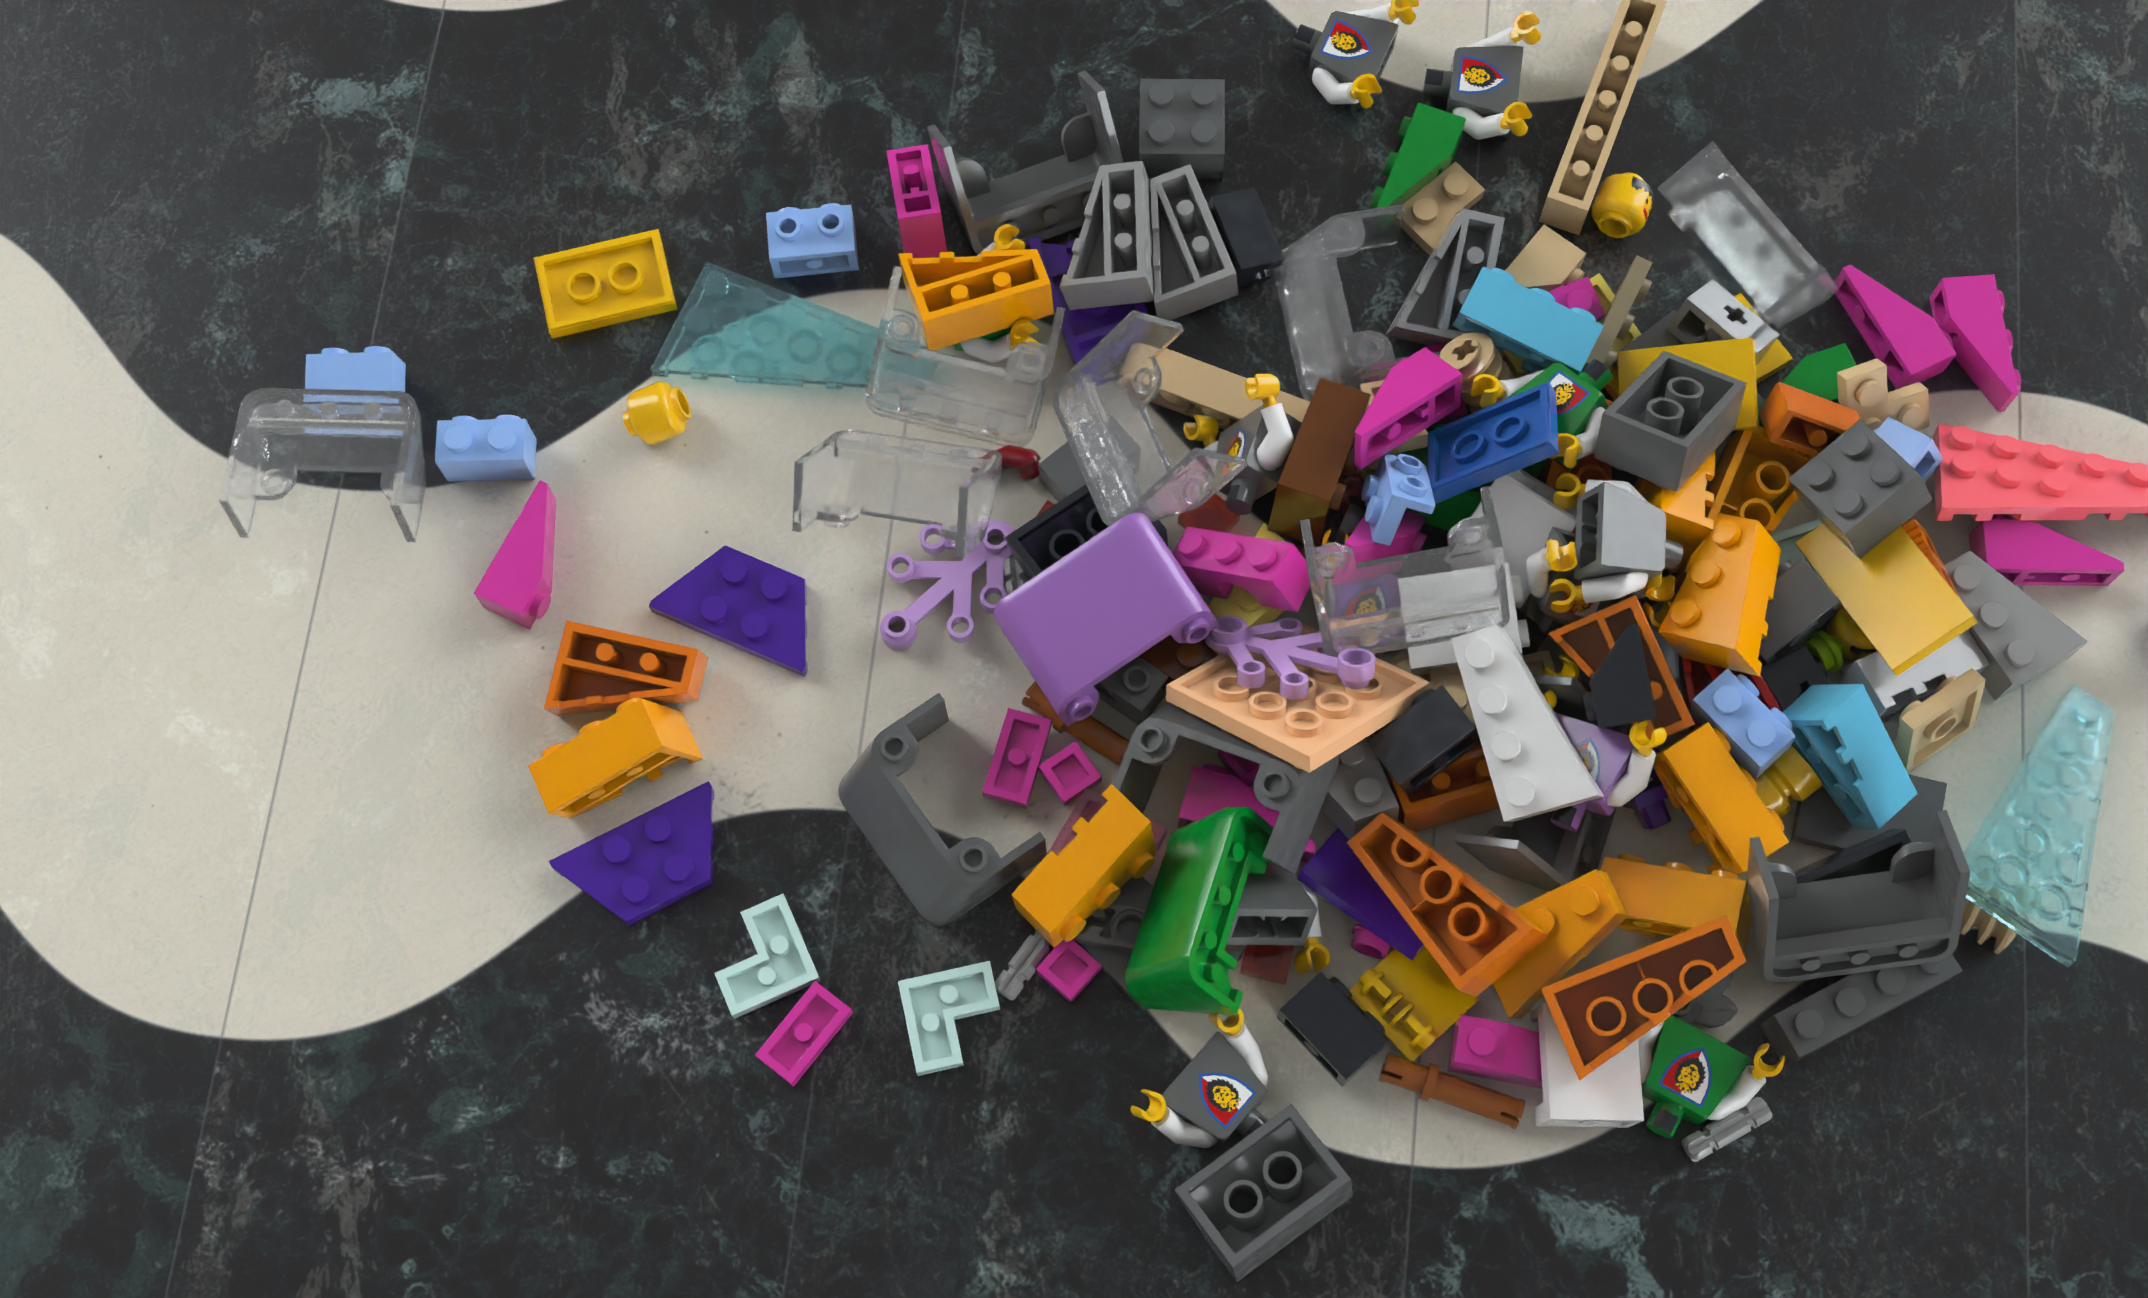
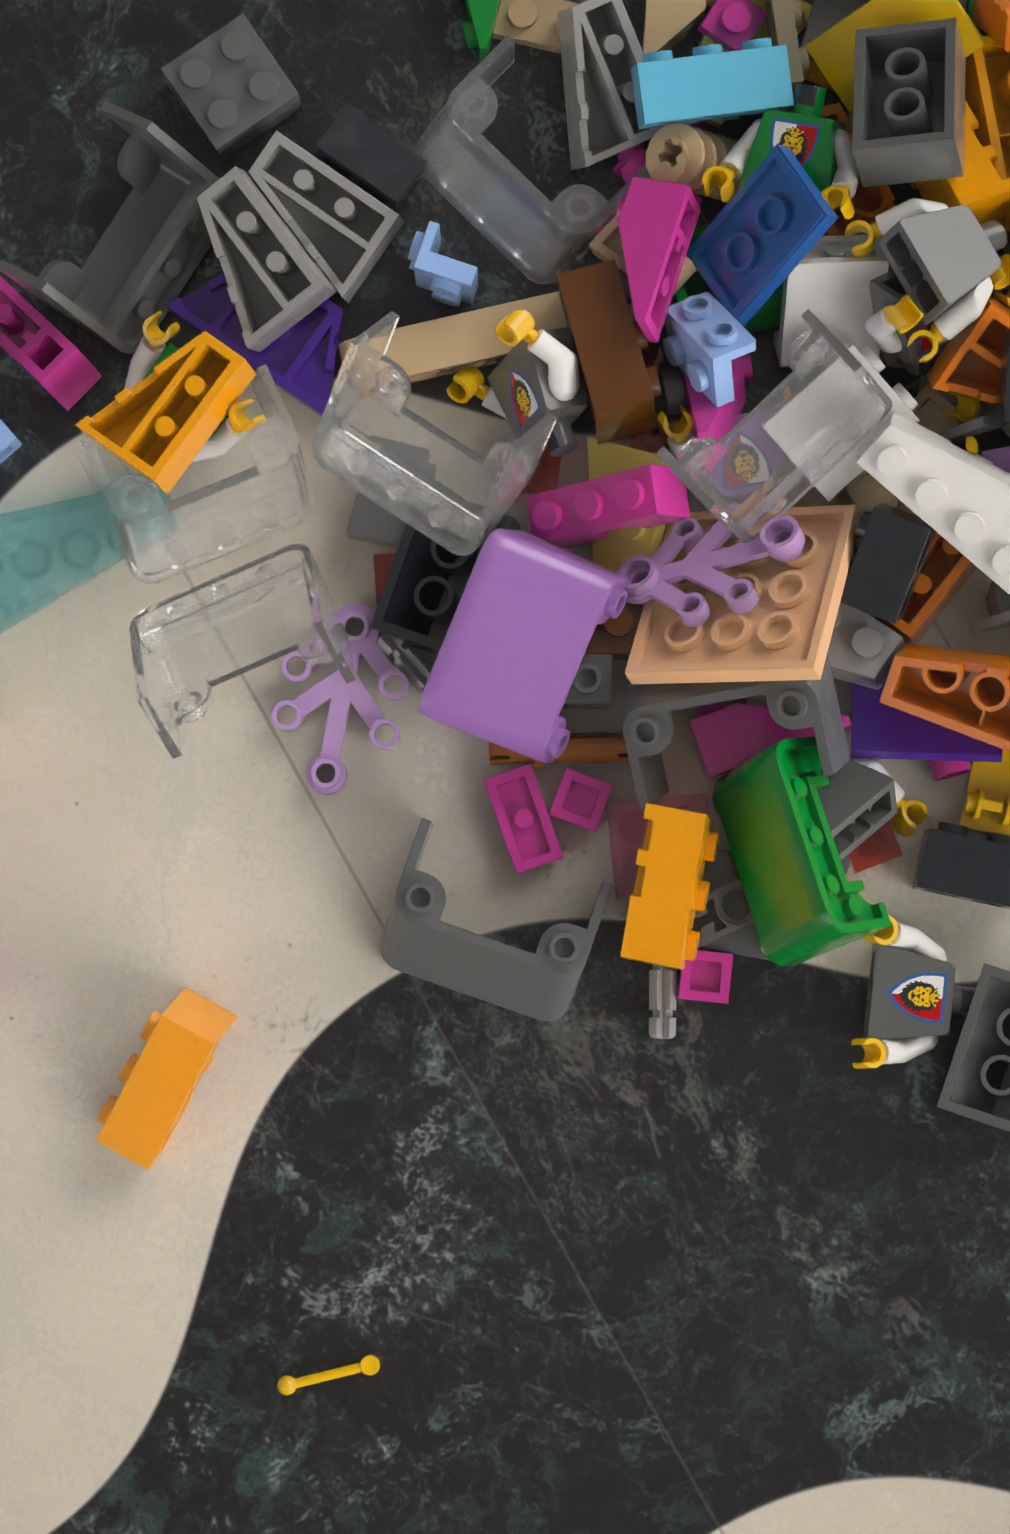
camera: 35 degrees left, 15 degrees up
(598, 1084) = (369, 1365): none -> yellow hinge
(607, 667) = (110, 993): orange wedge -> none
(647, 858) = (260, 1141): dark purple wing -> none
(742, 606) = (168, 851): dark purple wing -> none
(780, 962) = (451, 1153): light aqua plate -> none
(804, 1033) = (517, 1196): dark pink plate -> none
(934, 1004) = (611, 1093): light aqua plate -> none
(1020, 458) = (319, 531): dark red arm -> none
(1238, 335) = (446, 277): none -> light blue bracket

